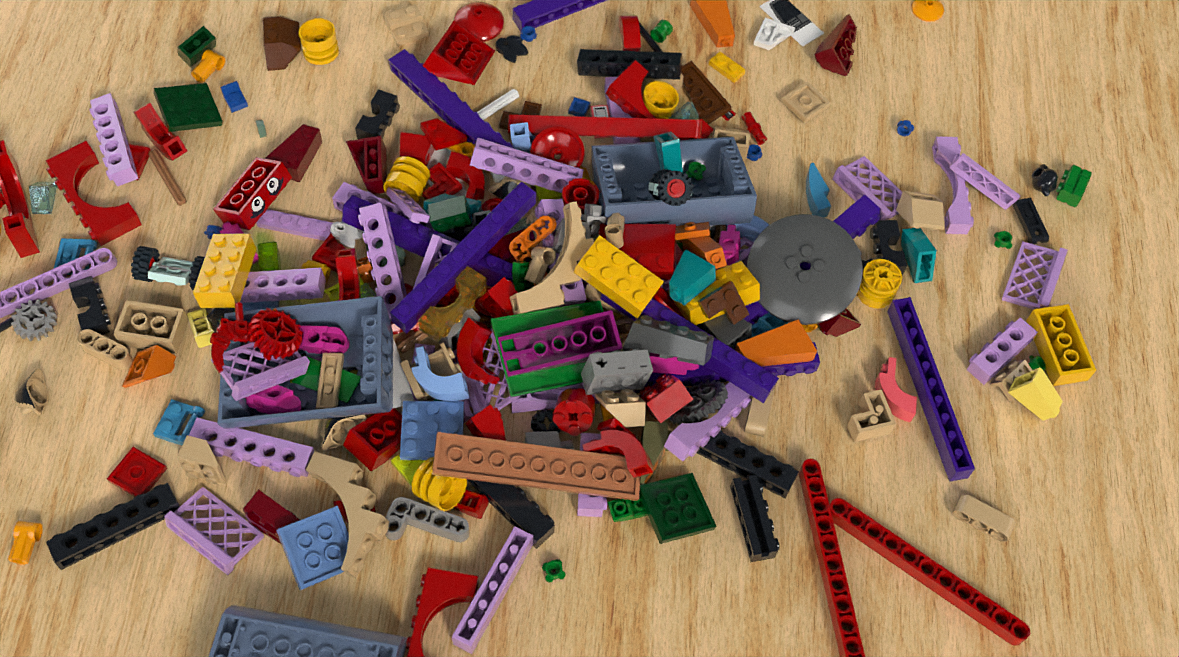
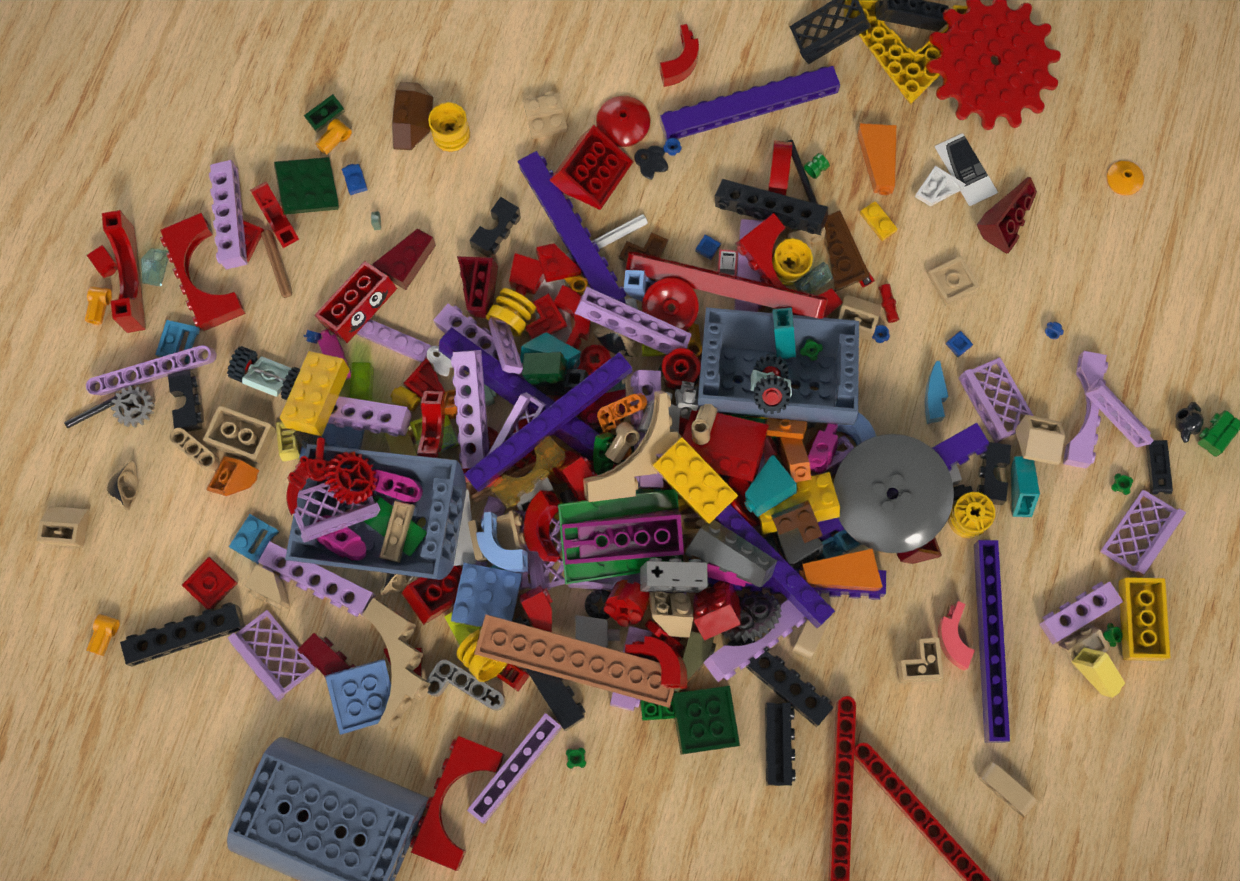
camera: 20 degrees right, 15 degrees up
(825, 151) = (959, 344): none -> blue tile

